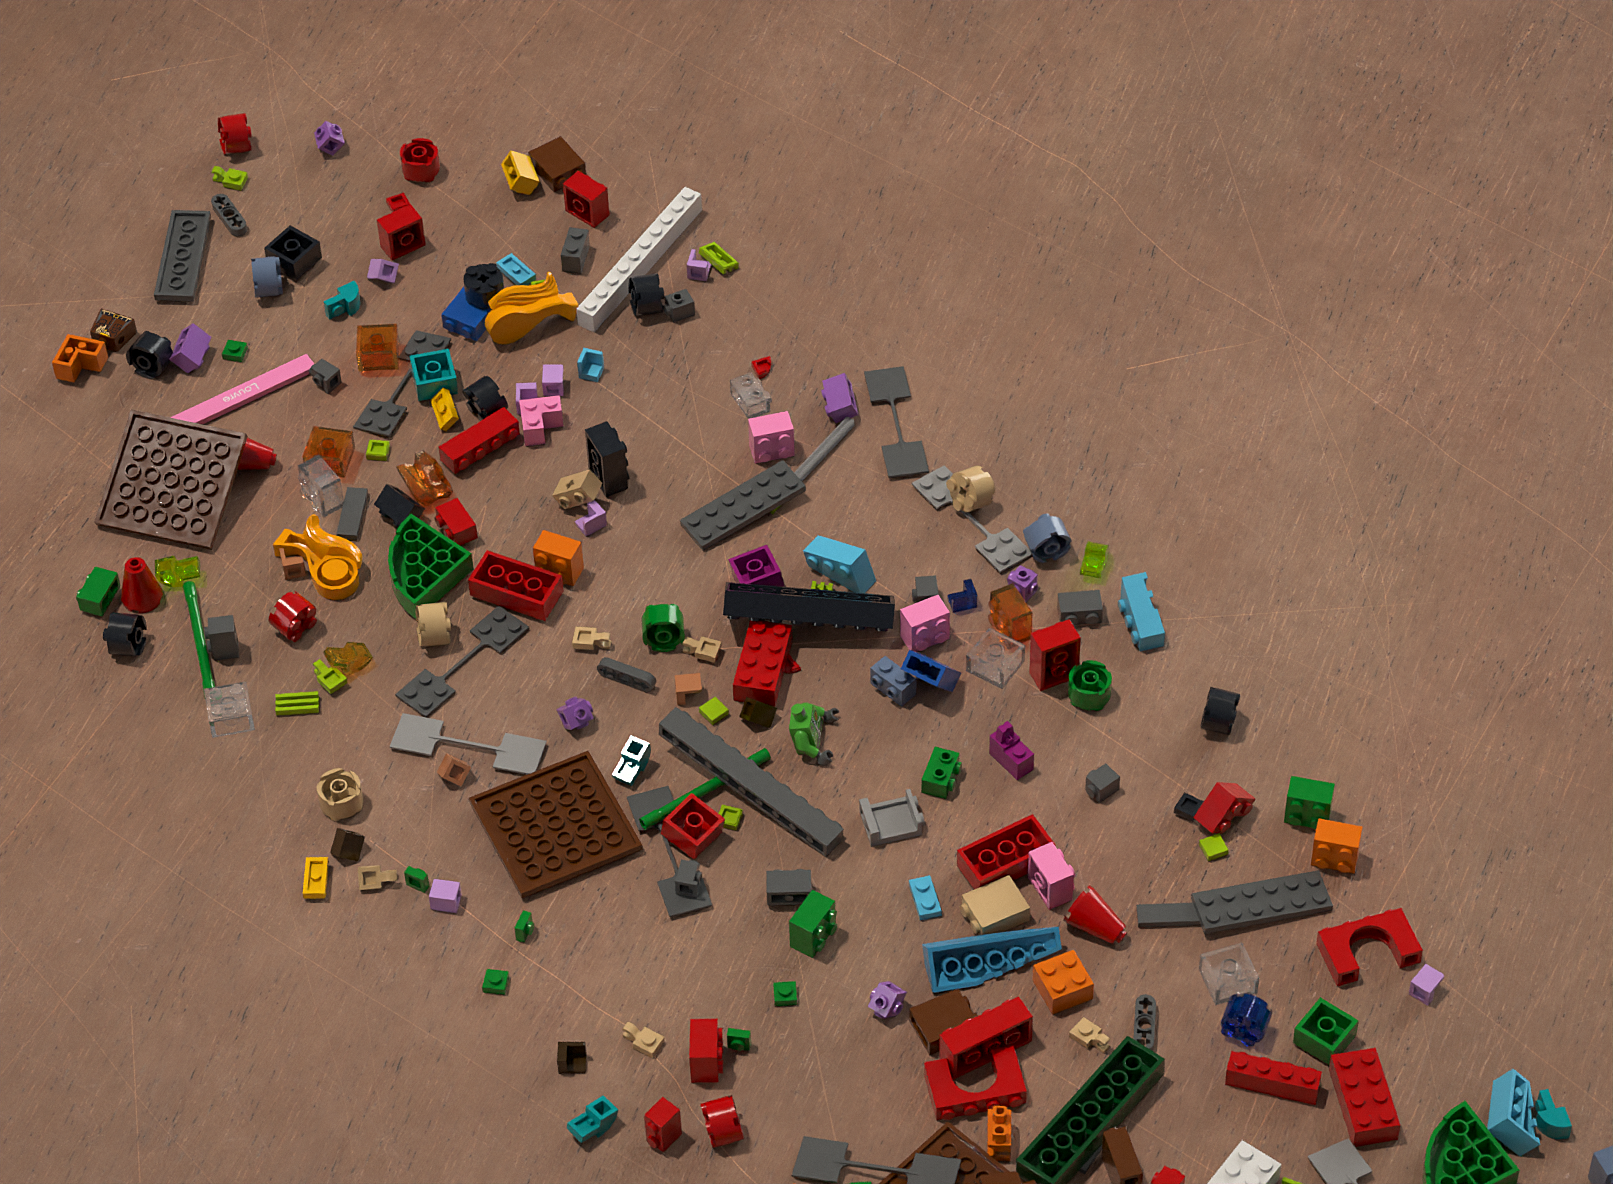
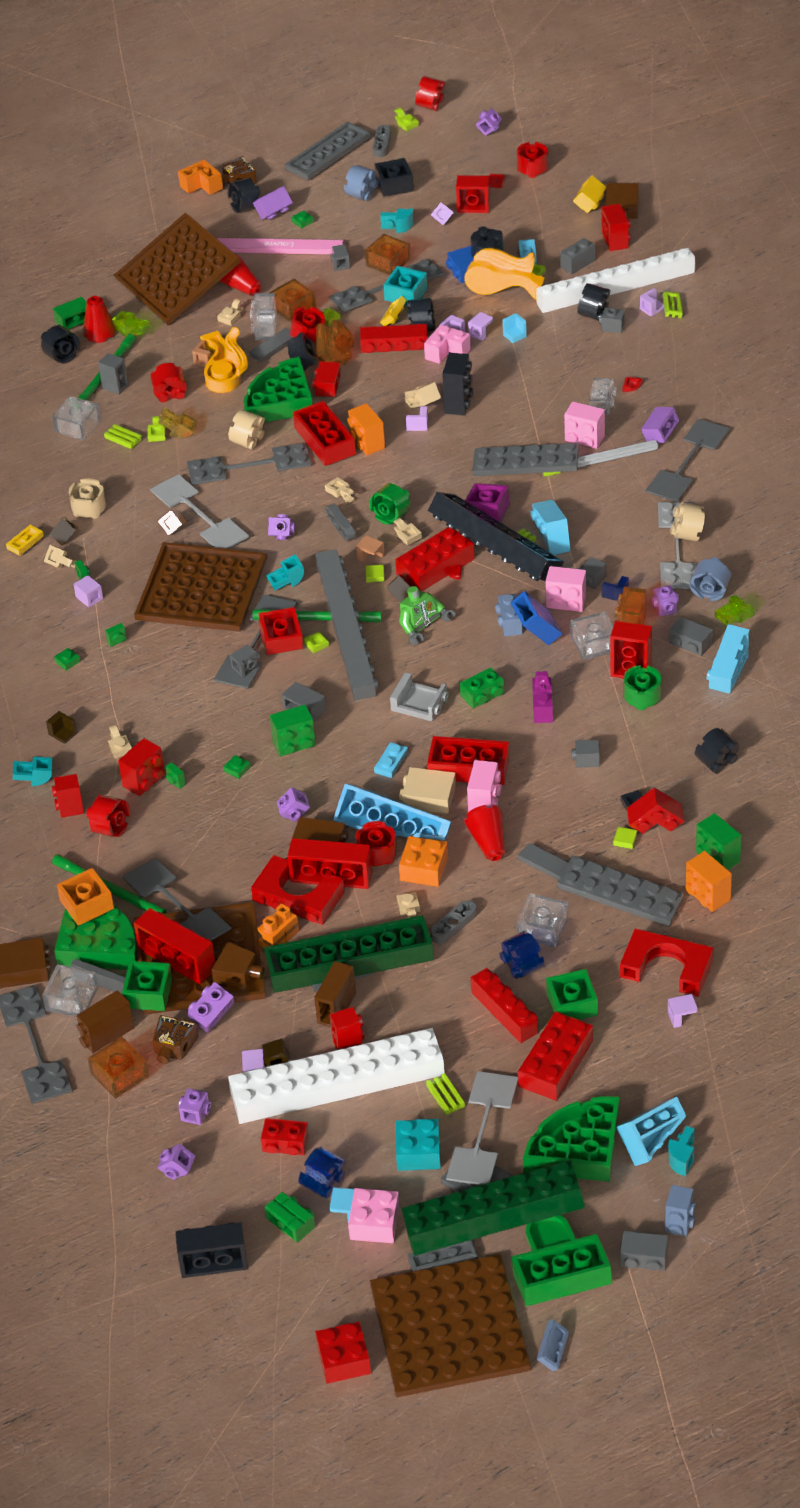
camera: 40 degrees right, 5 degrees down
(269, 502) = (231, 315): none -> tan plate
(375, 471) = (306, 321): none -> red brick
(1003, 984) = (381, 842): none -> red brick

